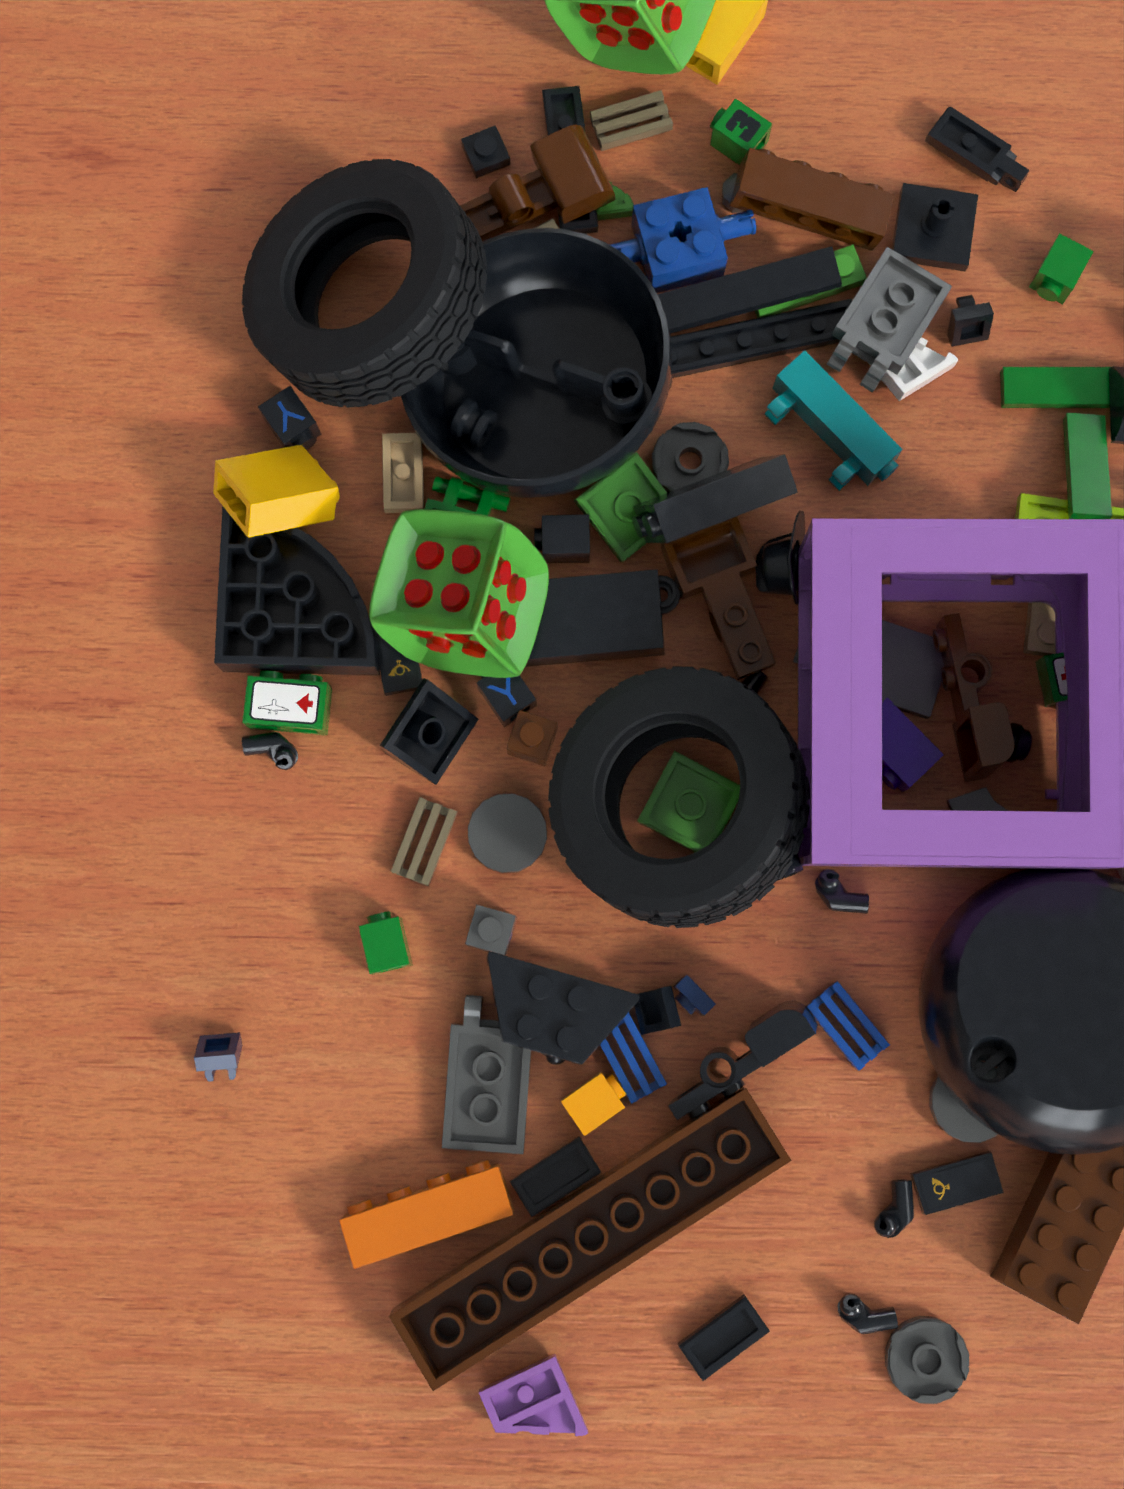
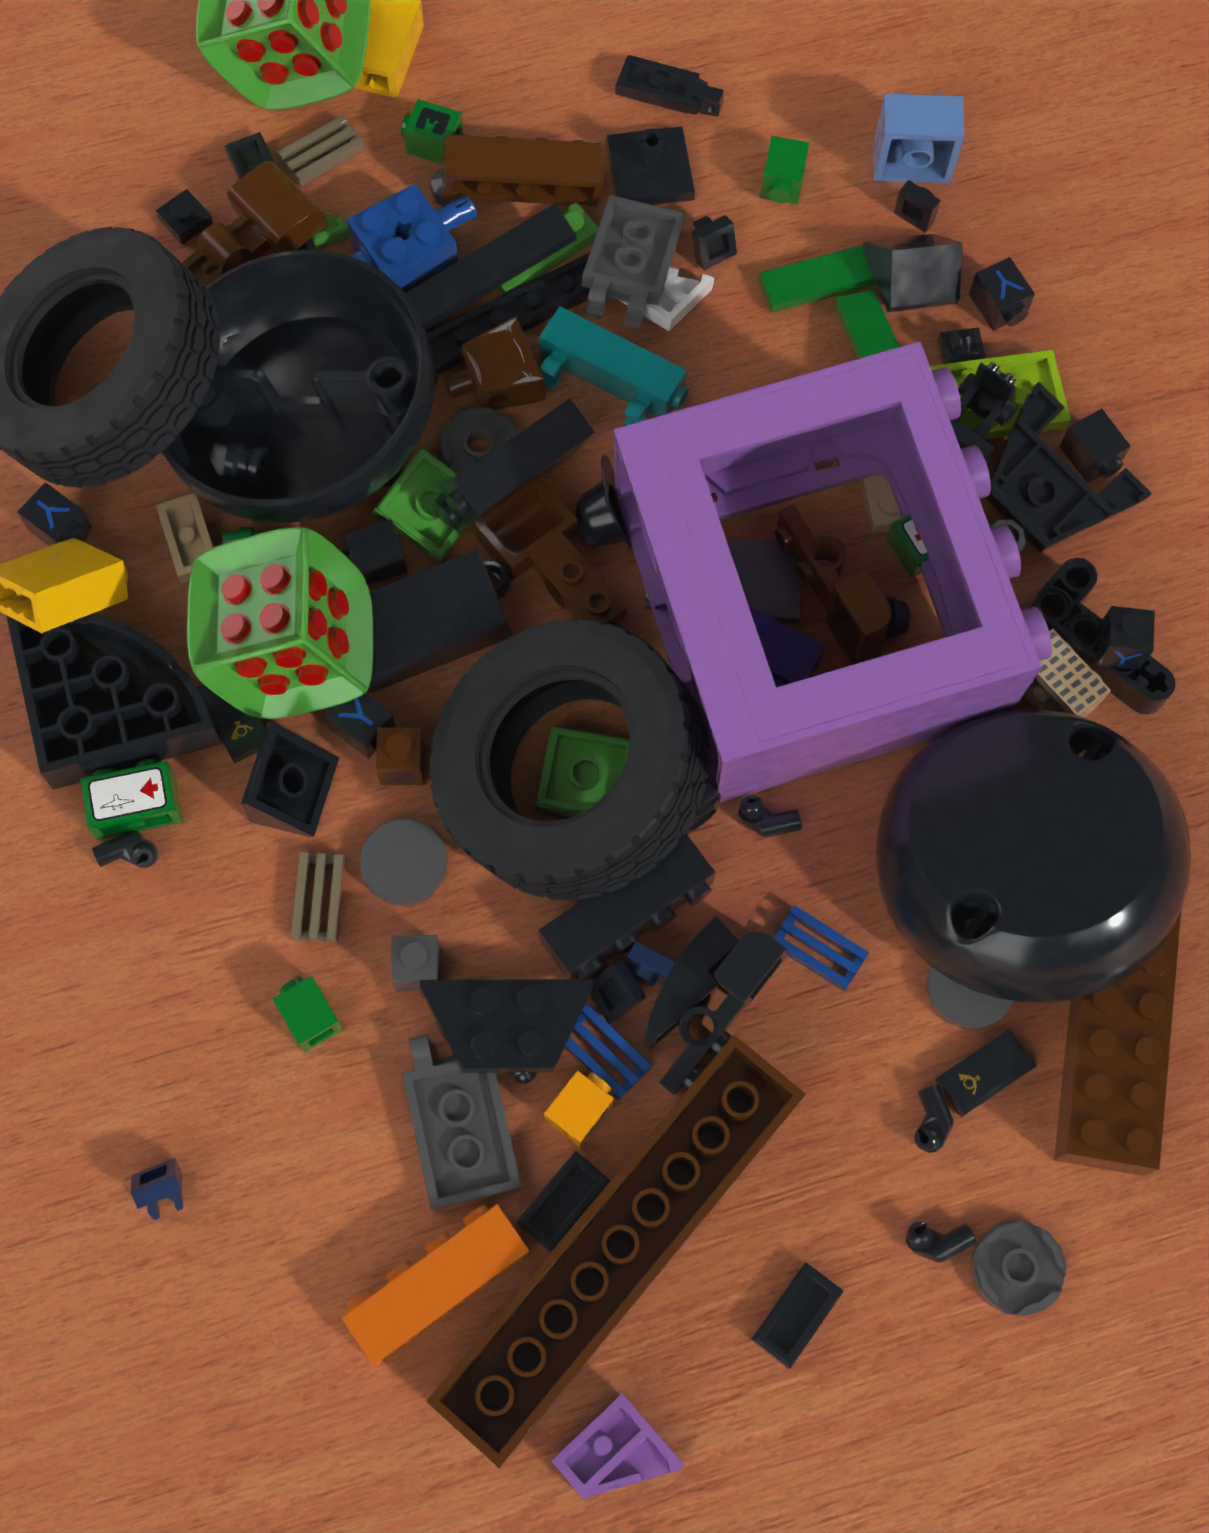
camera: 20 degrees left, 10 degrees down
(661, 949) = (615, 919): none -> black brick
(723, 1022) = (689, 980): none -> black slope
(729, 392) = (498, 369): none -> reddish brown torso

